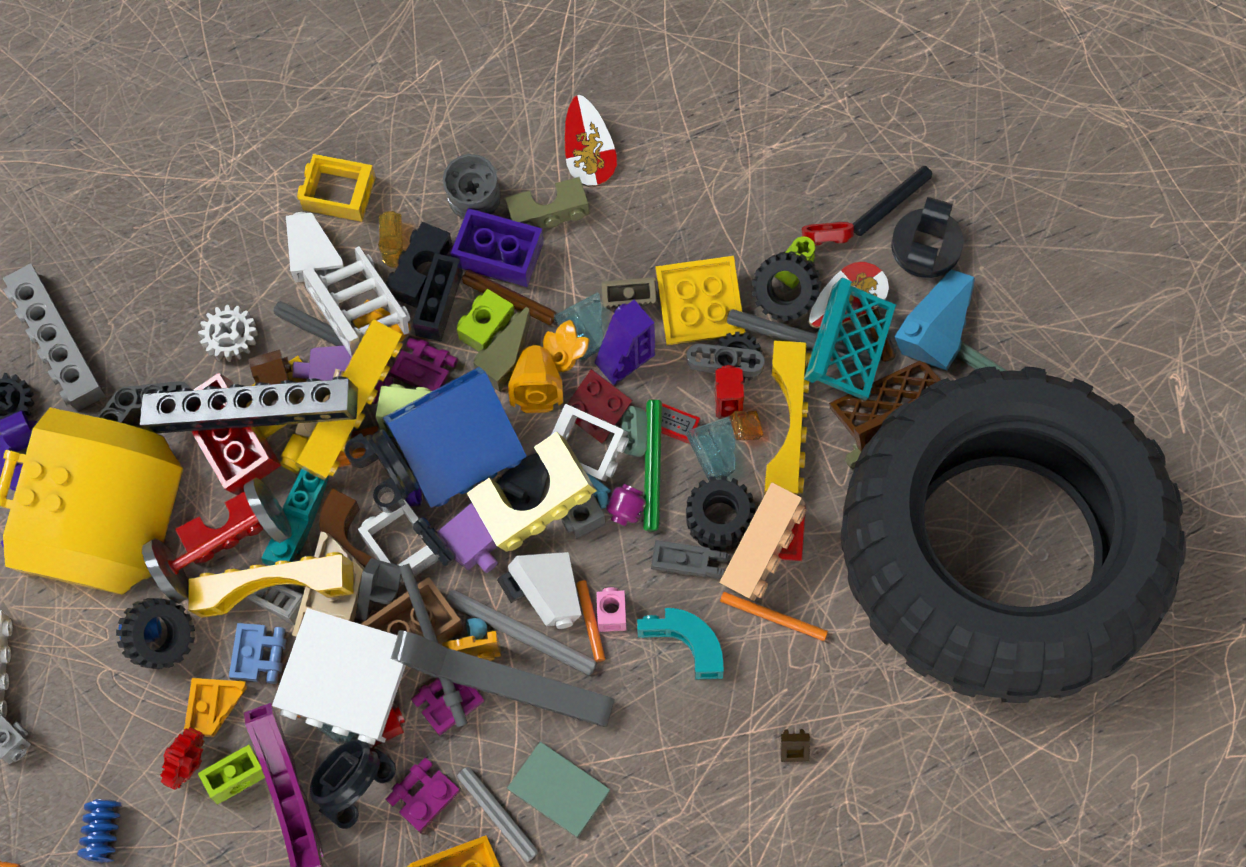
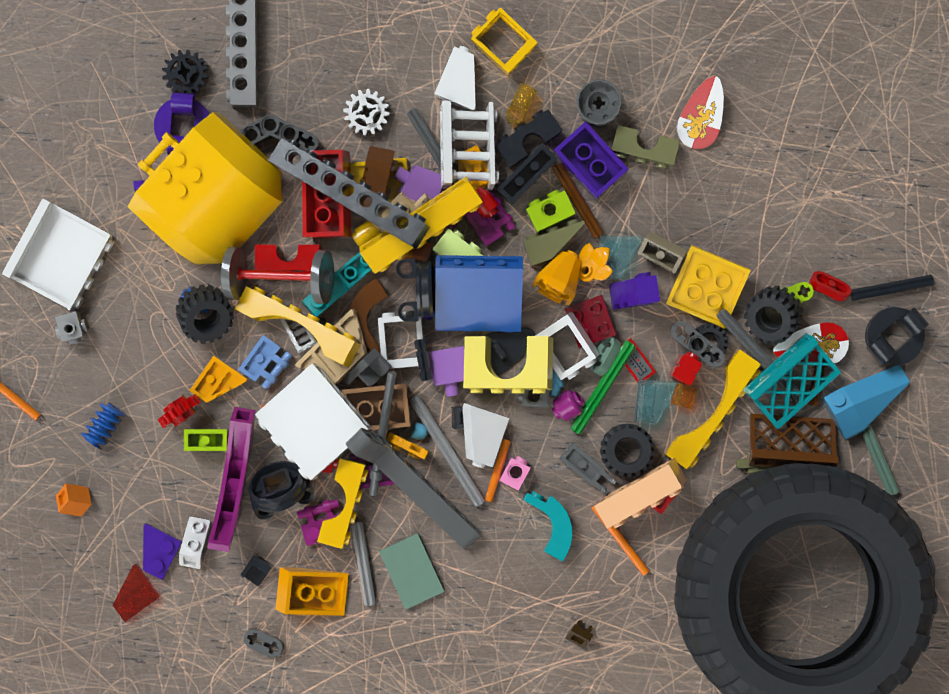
camera: 20 degrees right, 20 degrees up
(413, 348) = (489, 205): none -> red brick
(439, 787) = (349, 476): none -> yellow arch

